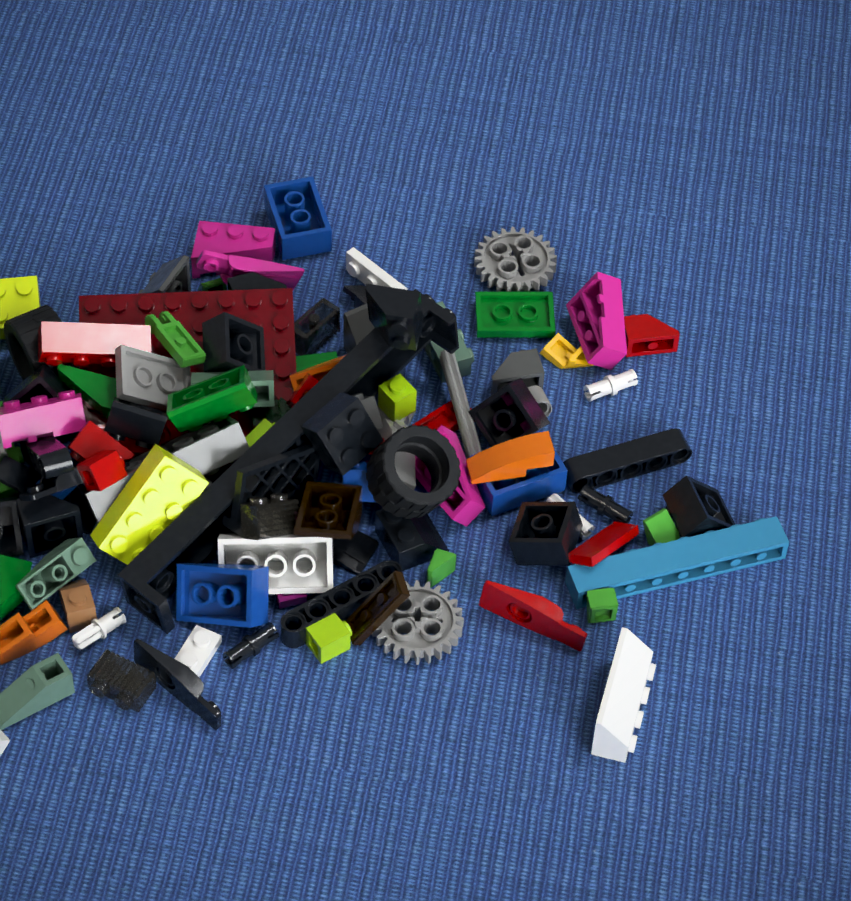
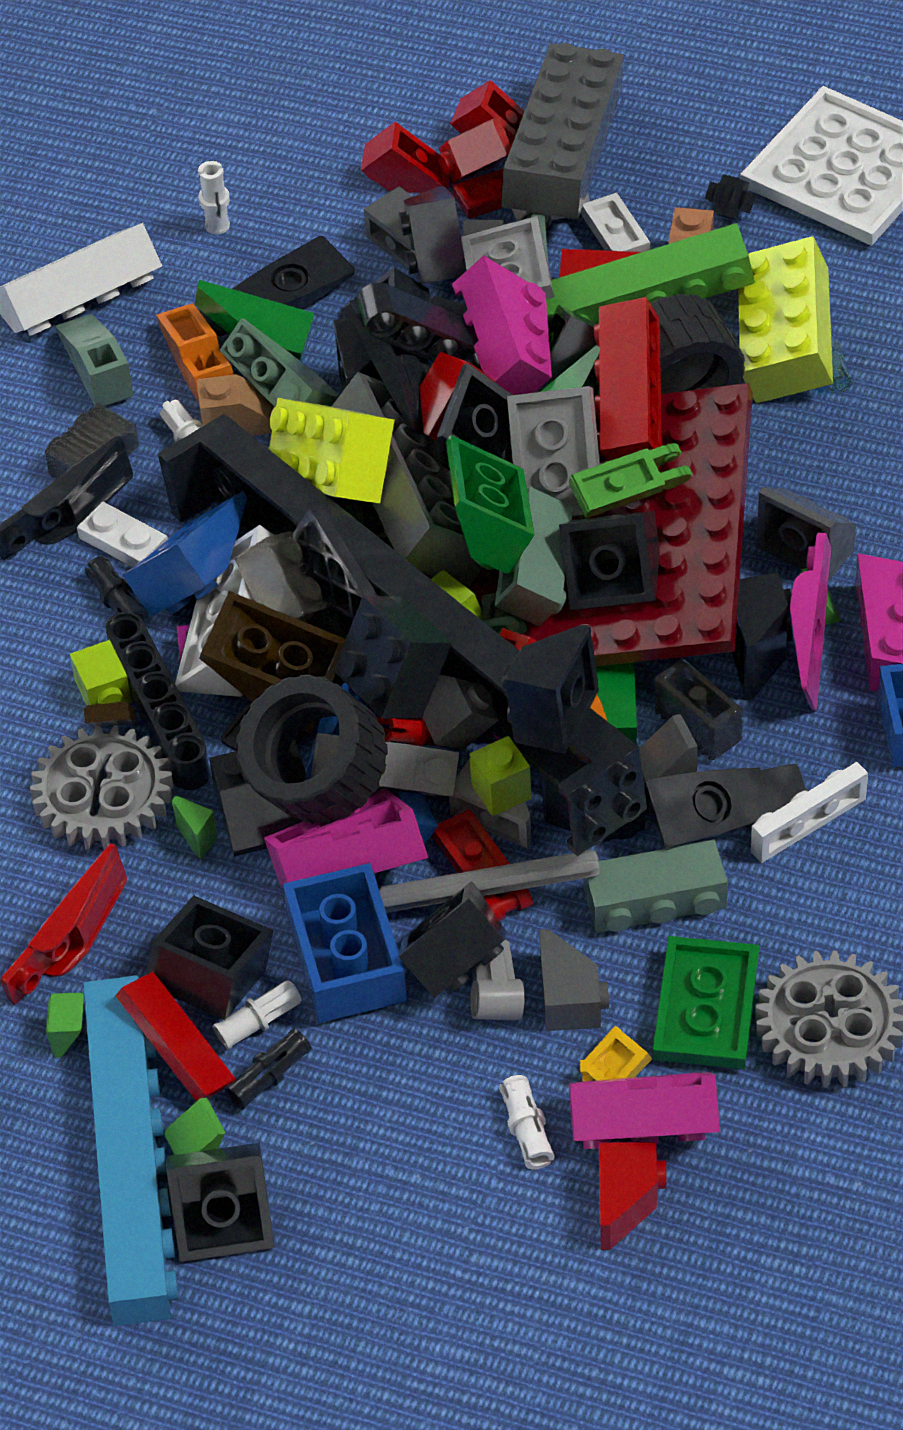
camera: 105 degrees right, 0 degrees up
(102, 470) = (380, 378): red brick -> none
(511, 458) = (334, 905): orange slope -> none
(627, 460) = (353, 1114): black beam -> none

